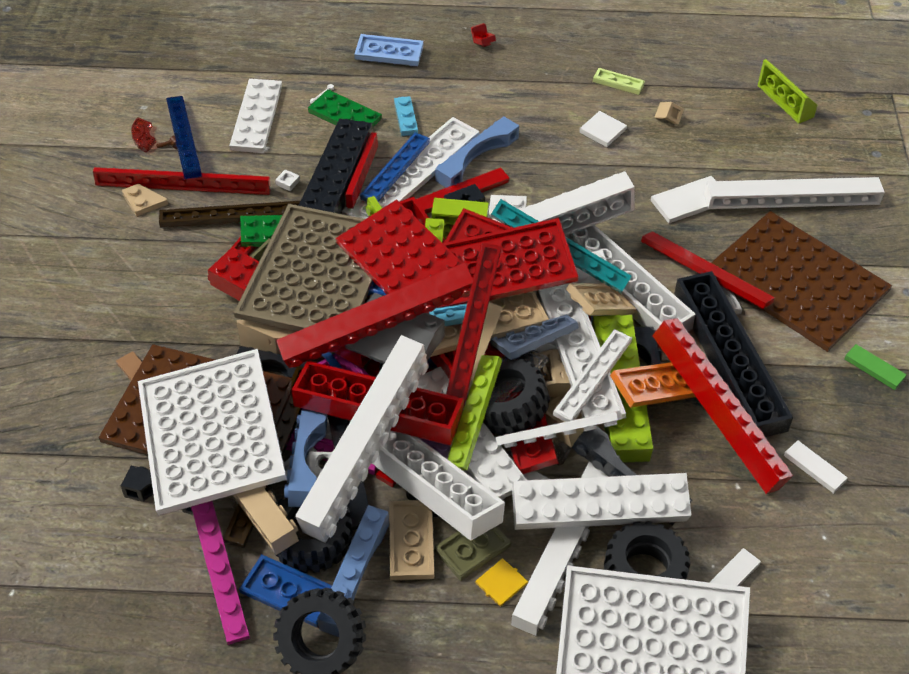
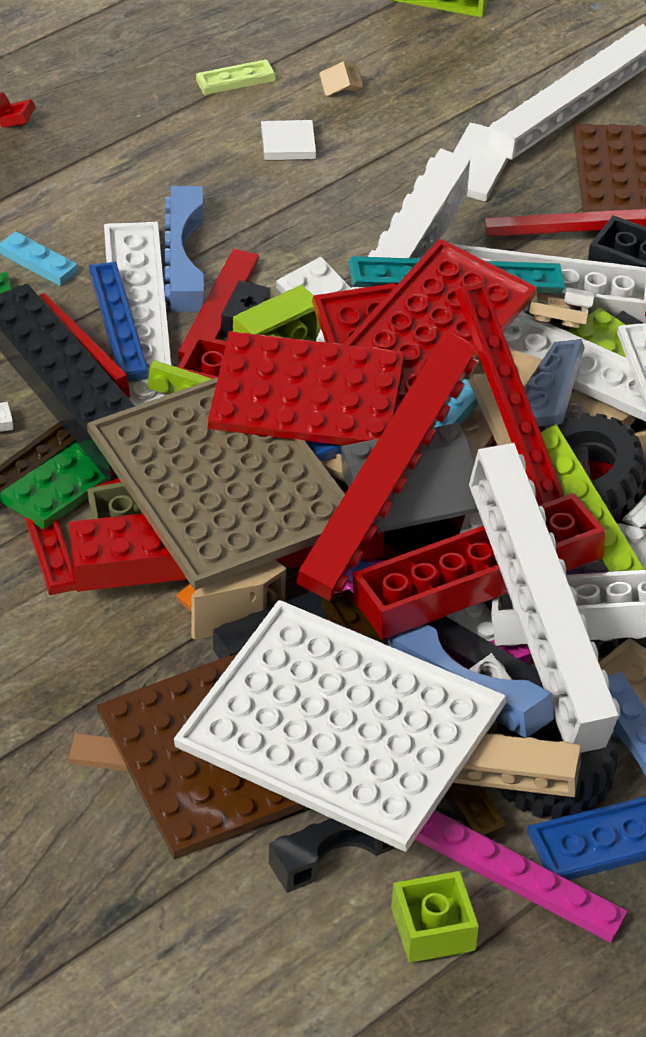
camera: 45 degrees left, 5 degrees down
(155, 560) = (434, 916): none -> lime brick
(623, 301) = (578, 297): none -> white tile

